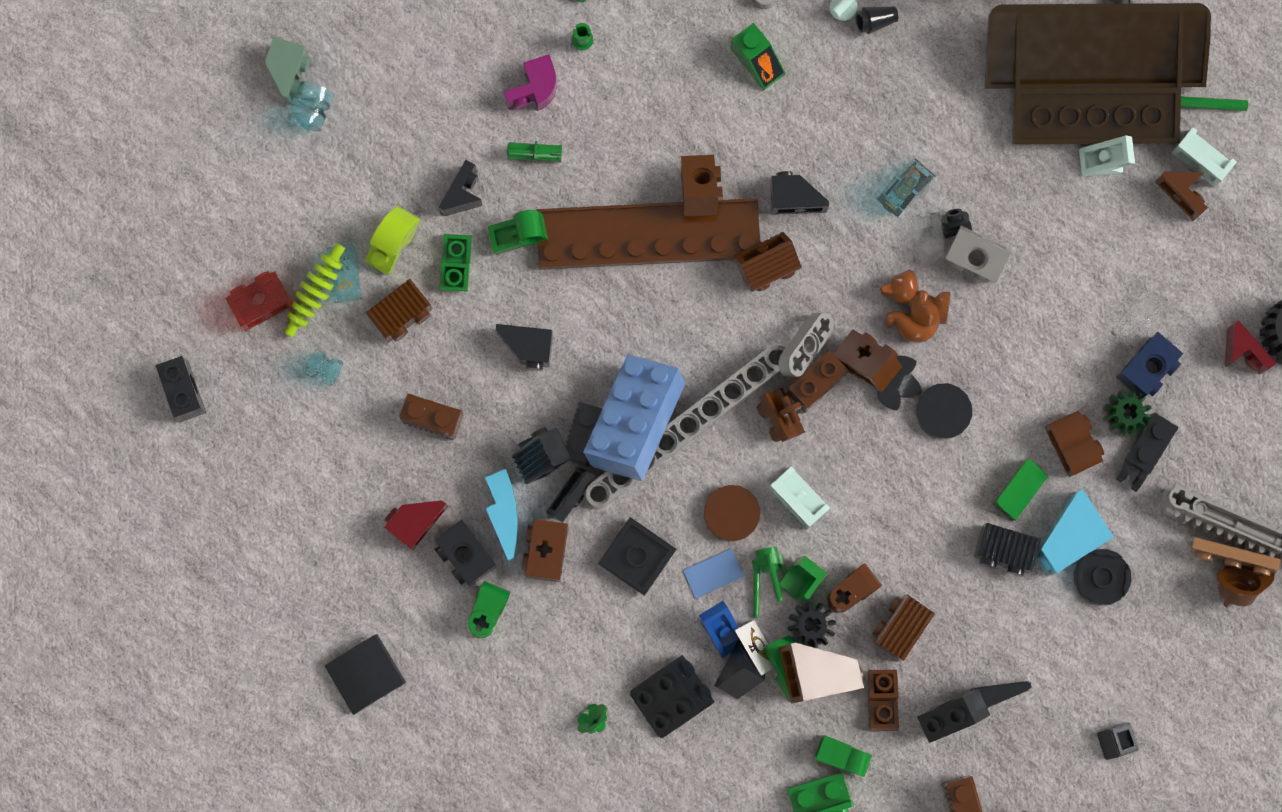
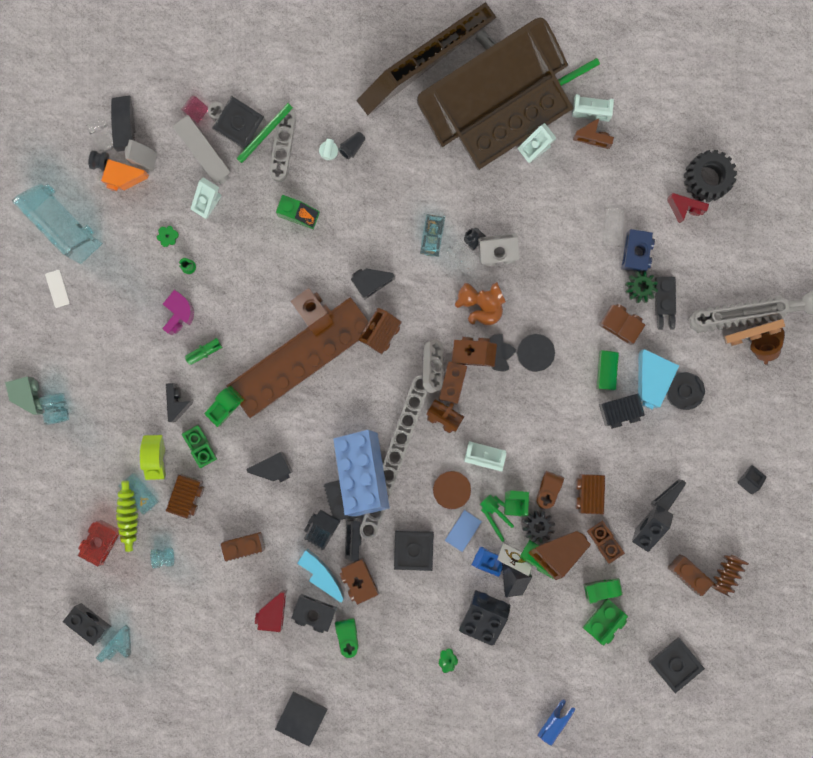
camera: 25 degrees left, 5 degrees up
(206, 435) = (120, 642): none -> clear light blue slope

